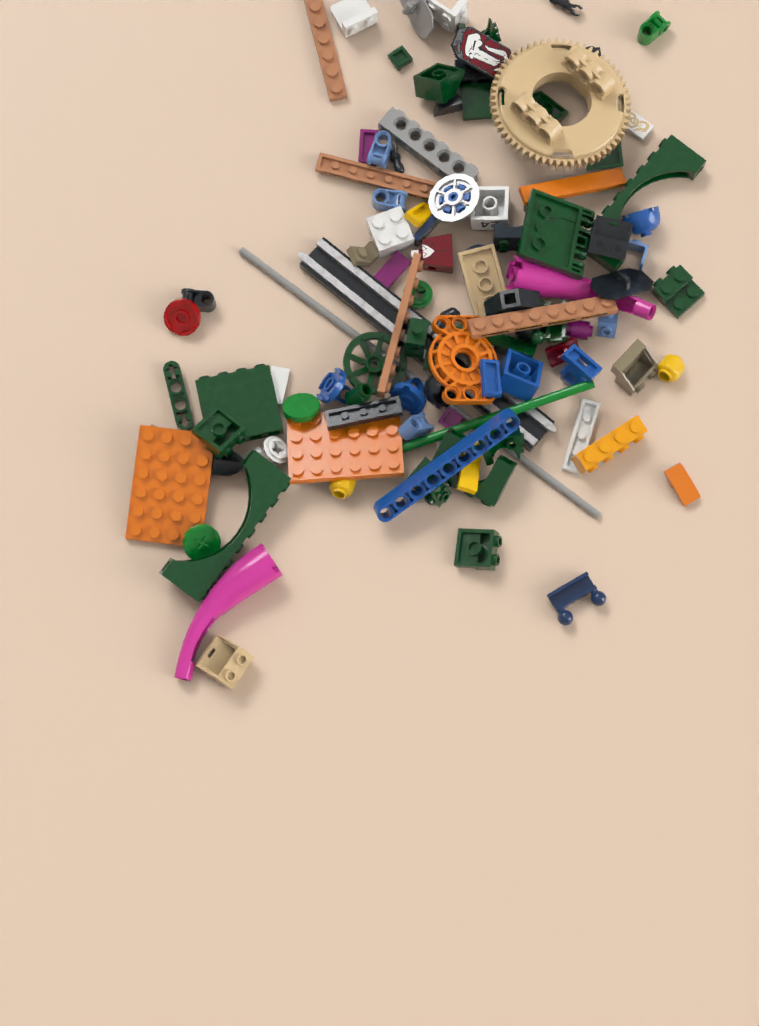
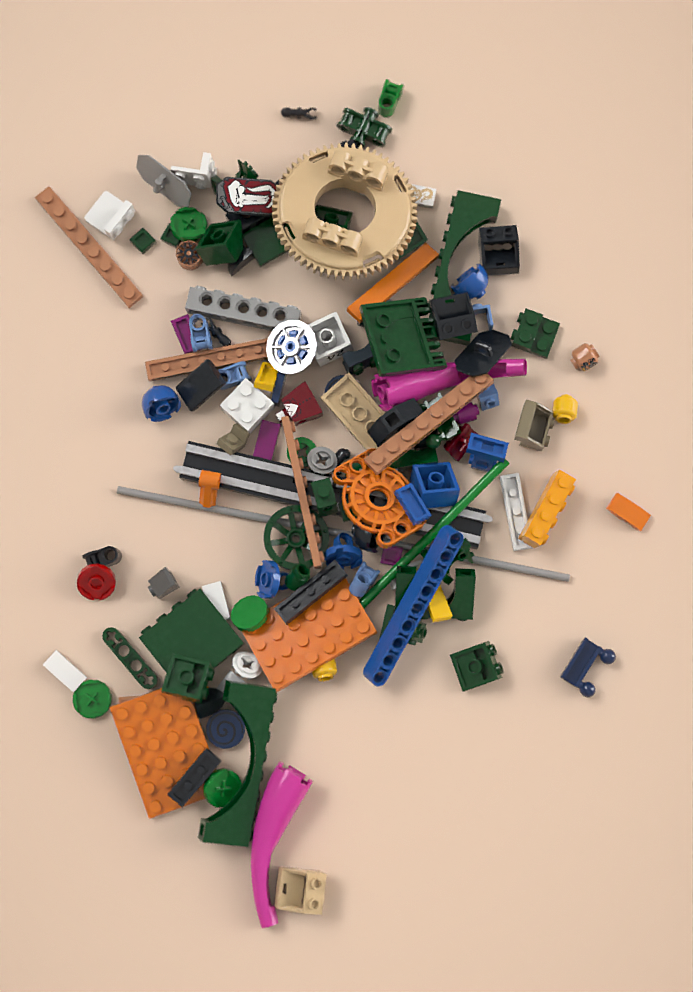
camera: 25 degrees left, 5 degrees up
(116, 379) = (64, 671): none -> white slope
(128, 415) = (92, 699): none -> green tile
(182, 519) = (194, 777): none -> black plate
(229, 496) = (225, 729): none -> dark blue tile
(239, 345) = (163, 583): none -> dark grey slope
(315, 193) = (160, 403): none -> blue cylinder
(322, 281) = (209, 485): none -> orange piece
(358, 194) = (200, 385): none -> black piece
(371, 50) = (142, 240): none -> dark green tile
(403, 81) = (188, 256): none -> nougat wheel
(418, 54) = (188, 224): none -> green tile
(435, 303) = (324, 454): none -> light grey gear
(617, 43) = (364, 127): none -> dark green axle
(683, 190) = (494, 260): none -> black piece
(711, 332) = (584, 357): none -> nougat head

